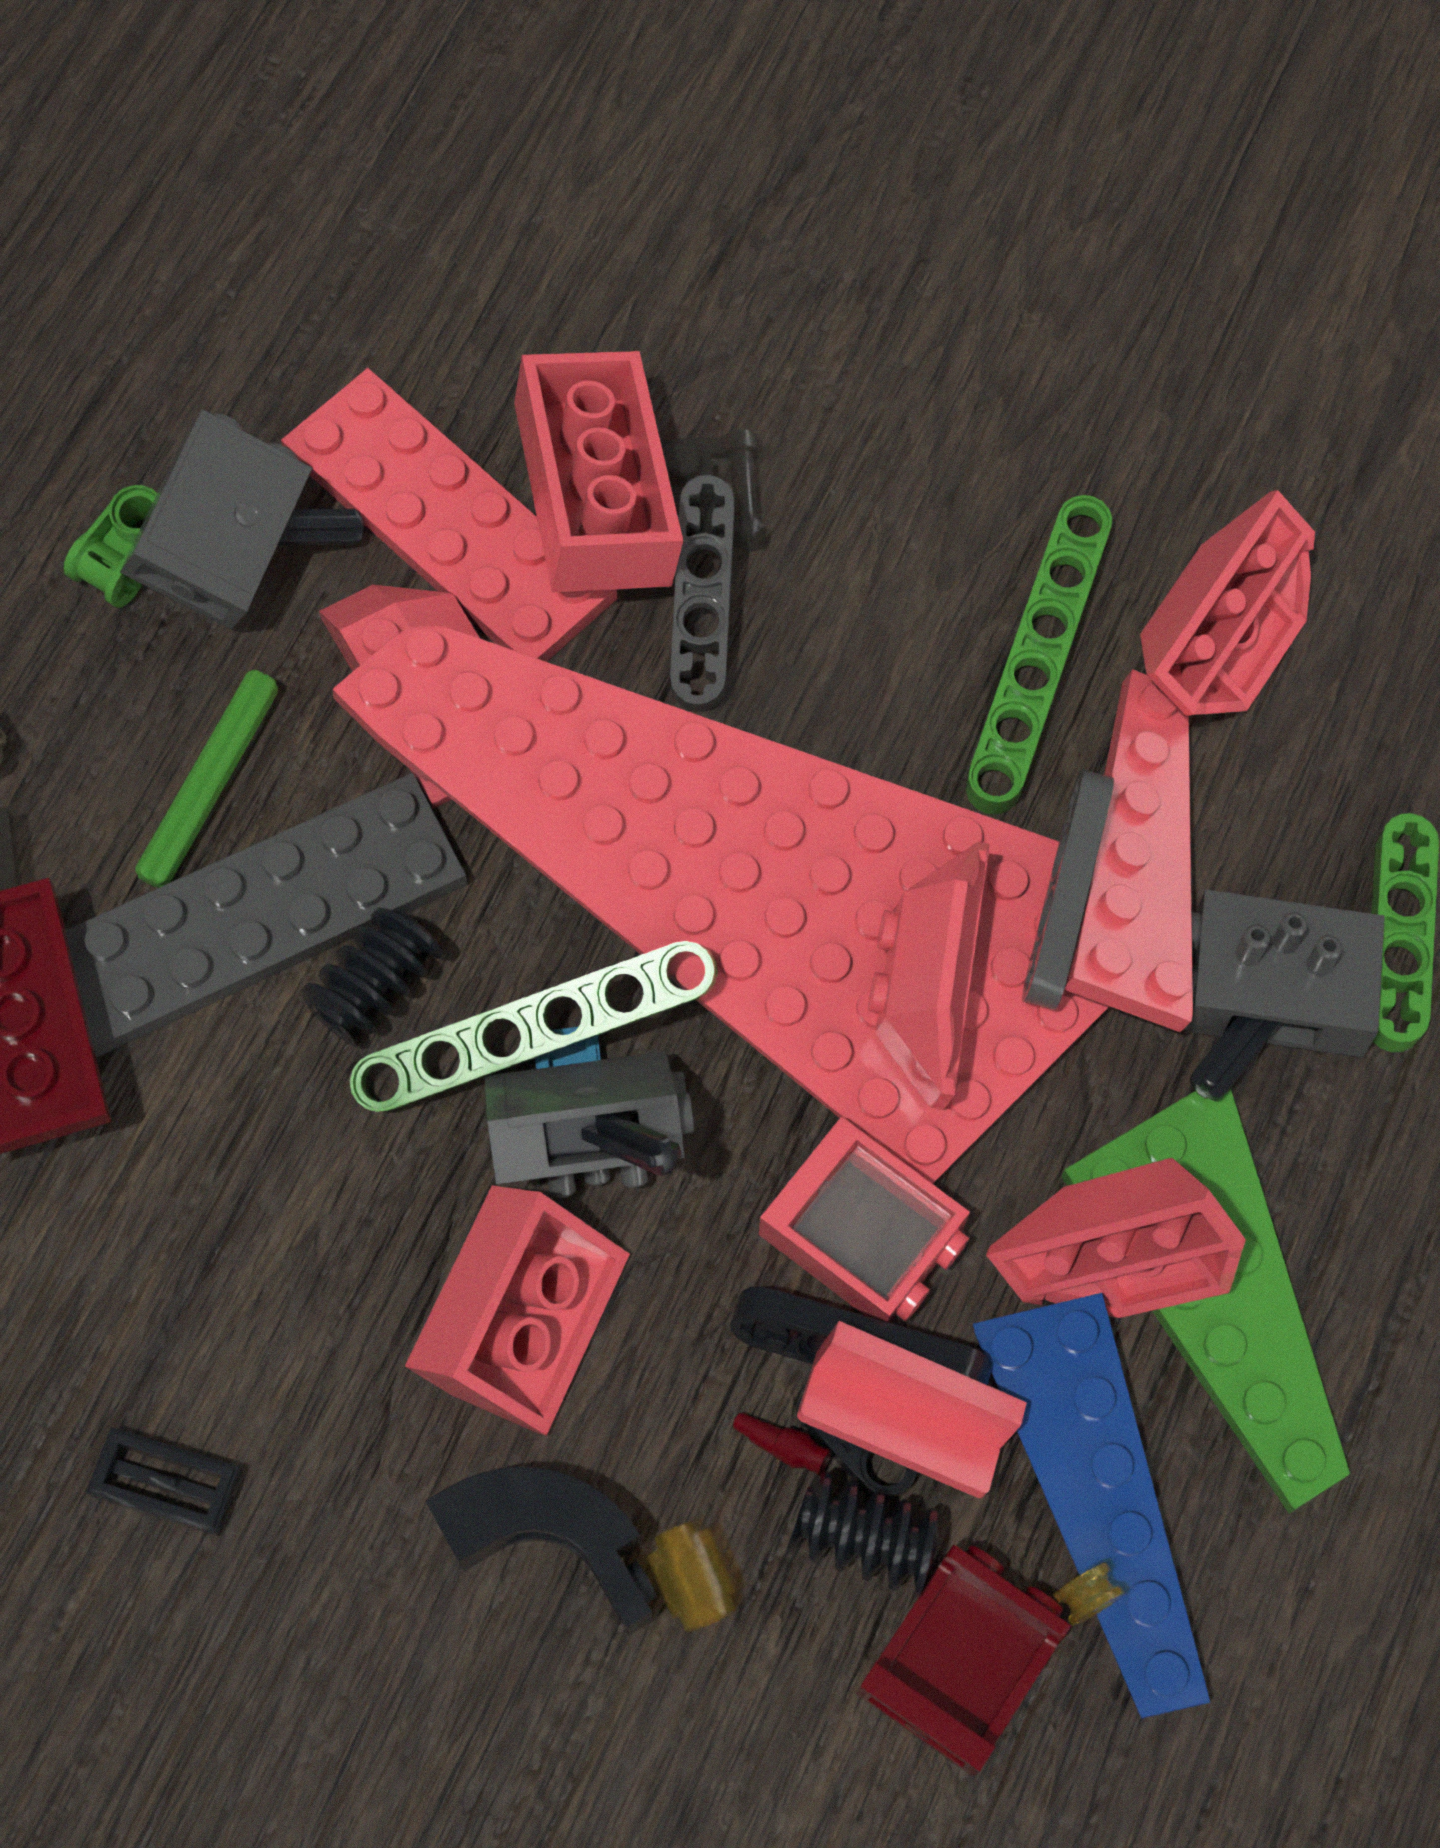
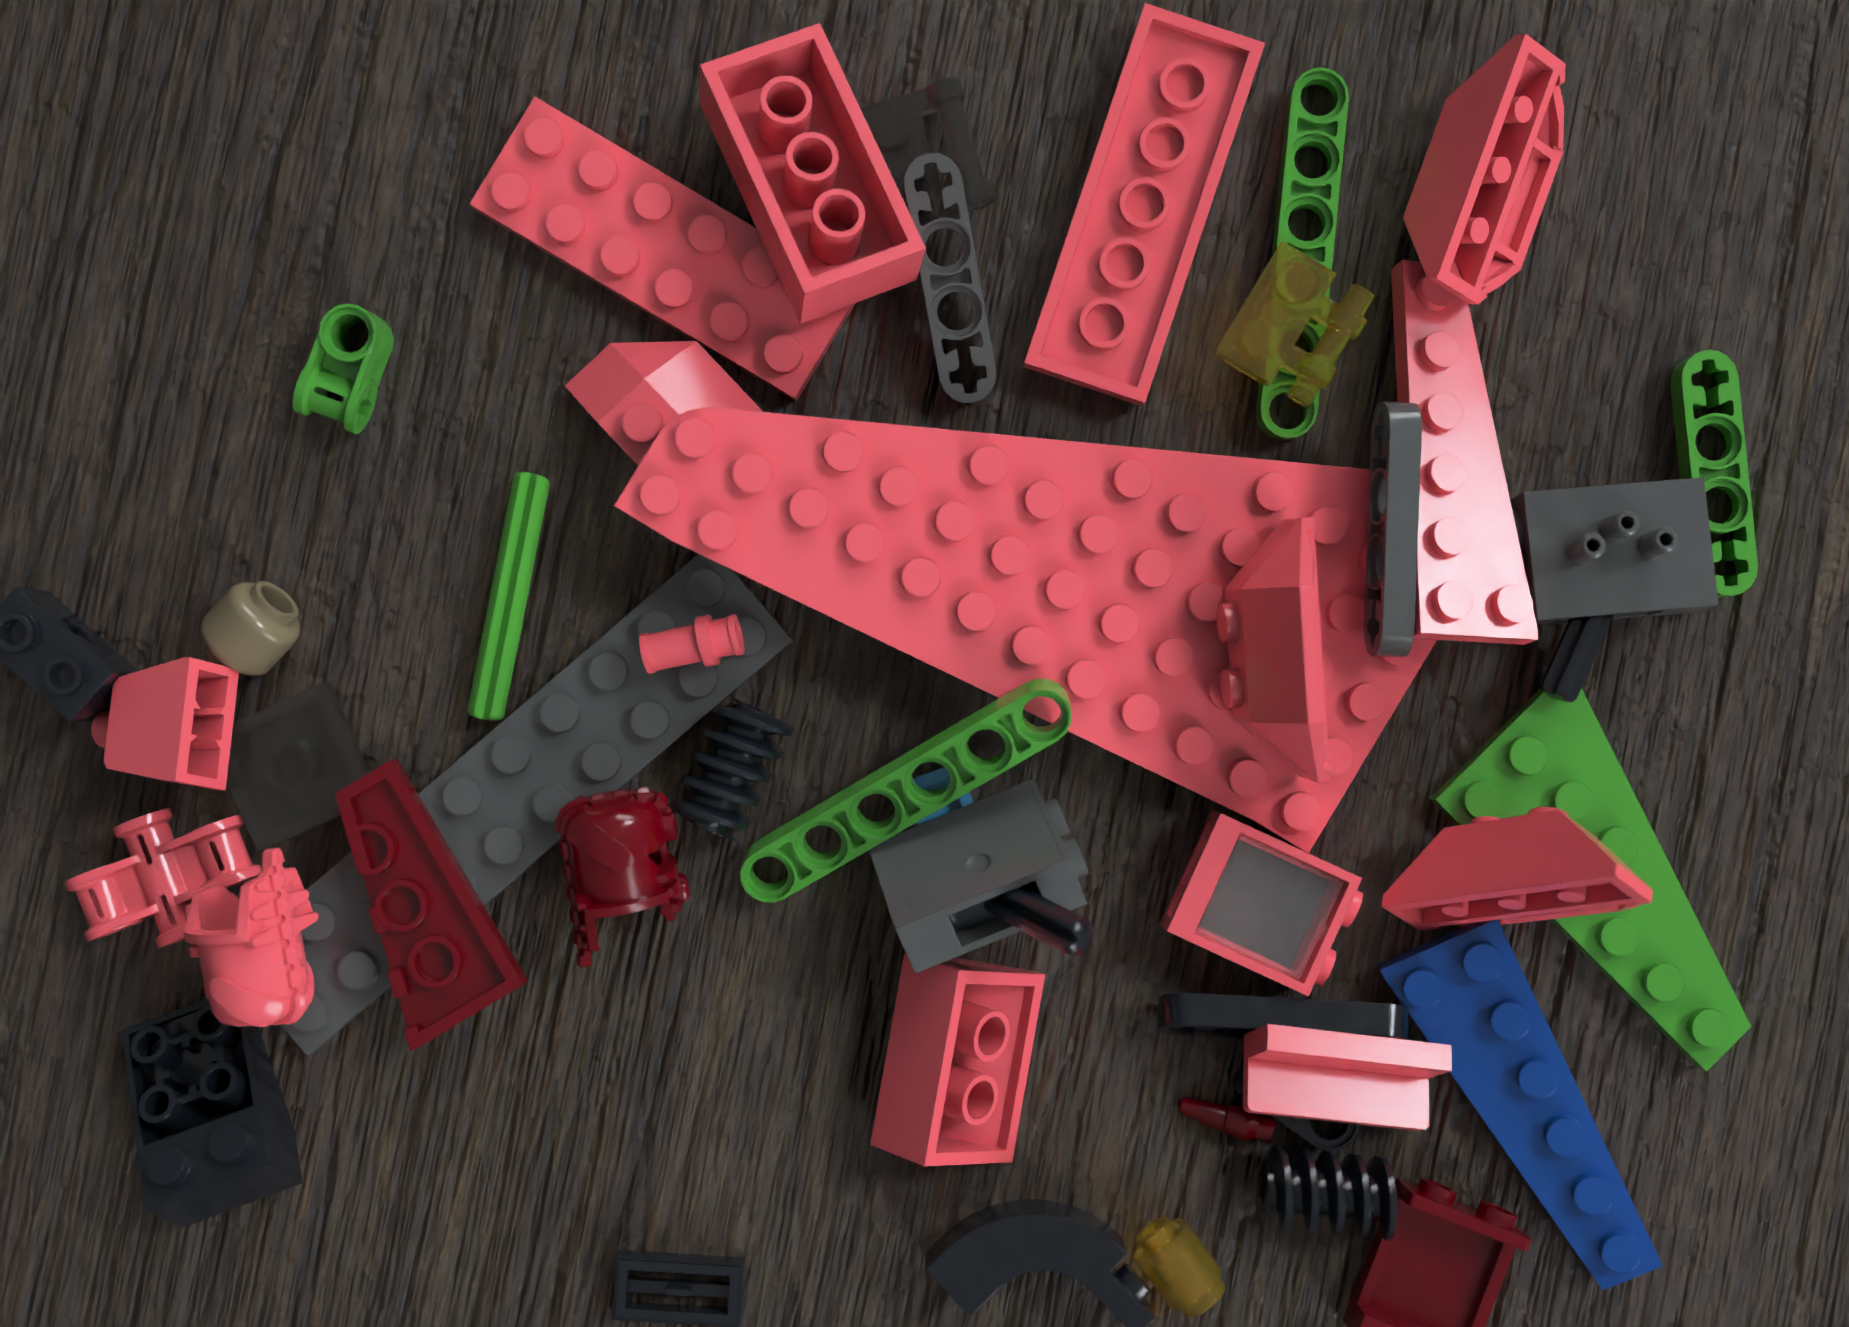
camera: 15 degrees left, 20 degrees up
(224, 516) = (442, 320): dark grey piece -> none
(229, 1021) = (618, 860): none -> dark red helmet
(375, 844) = (701, 642): none -> coral pin
(897, 578) = (1144, 205): none -> coral plate
(1002, 686) = (1277, 312): none -> clear yellow plate
(1089, 1594) = (1542, 1204): clear yellow bush -> none

